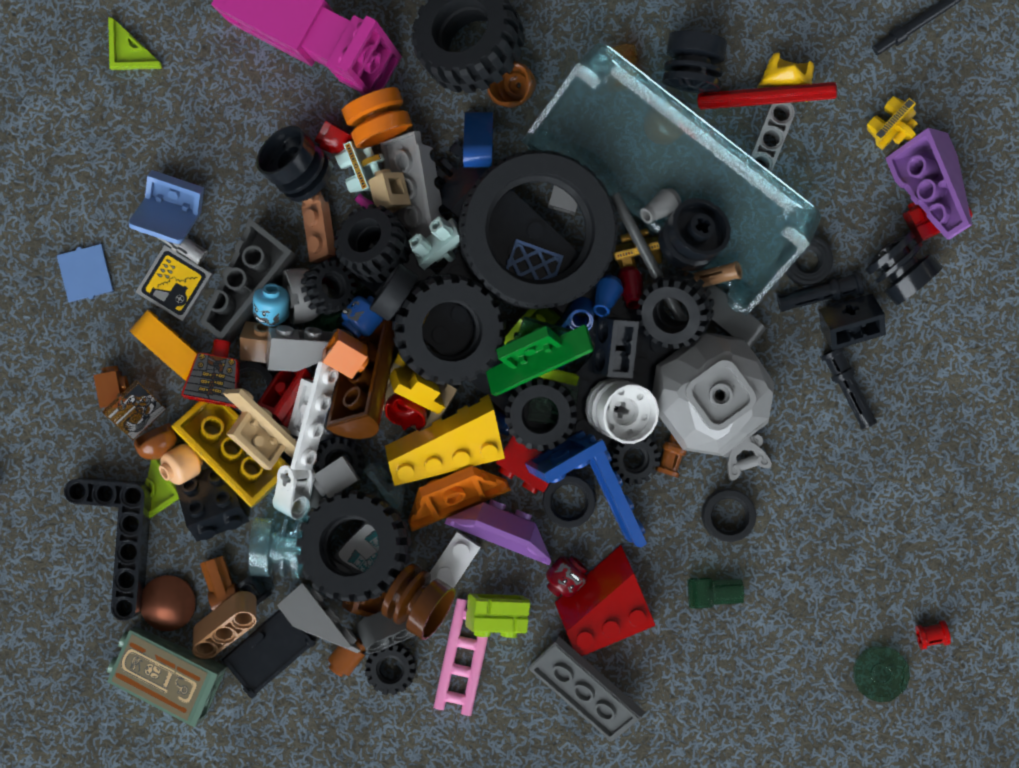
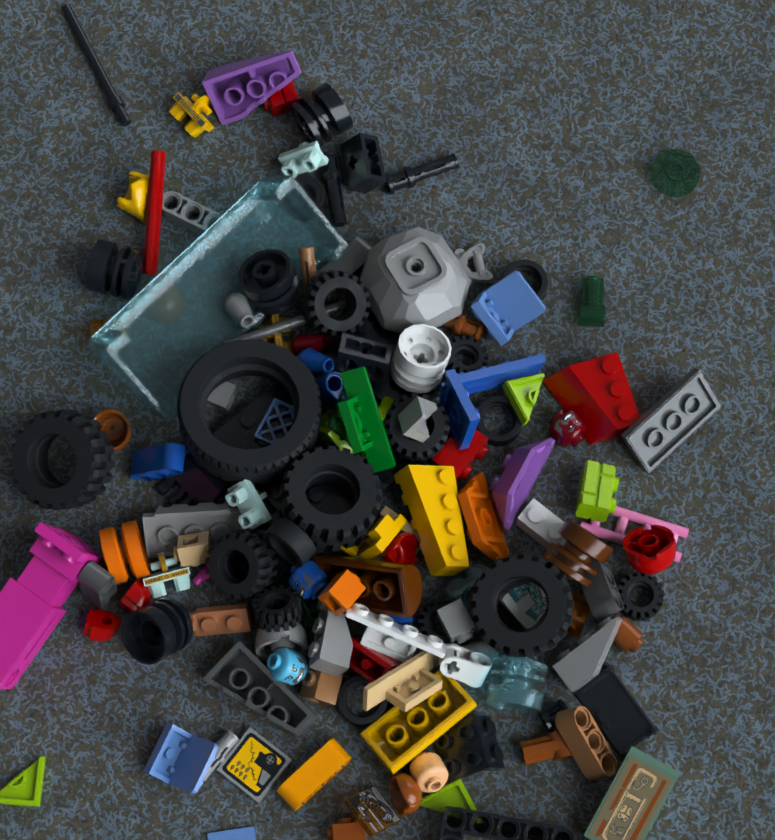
camera: 85 degrees left, 15 degrees down
(167, 603) = (561, 801): copper dish -> none
(213, 375) = (349, 725): torso -> none
(300, 105) = (101, 625): none -> red piece
(334, 94) = (97, 585): none -> dark grey beam
(437, 677) = (650, 549): none -> red cylinder
(542, 411) = (413, 418): none -> light grey panel
(598, 526) = (523, 394): none -> lime tile
(695, 498) = (507, 306): none -> medium blue bracket
(849, 255) = (302, 159): none -> light aqua hips
(933, 635) = (644, 126): red bush -> none

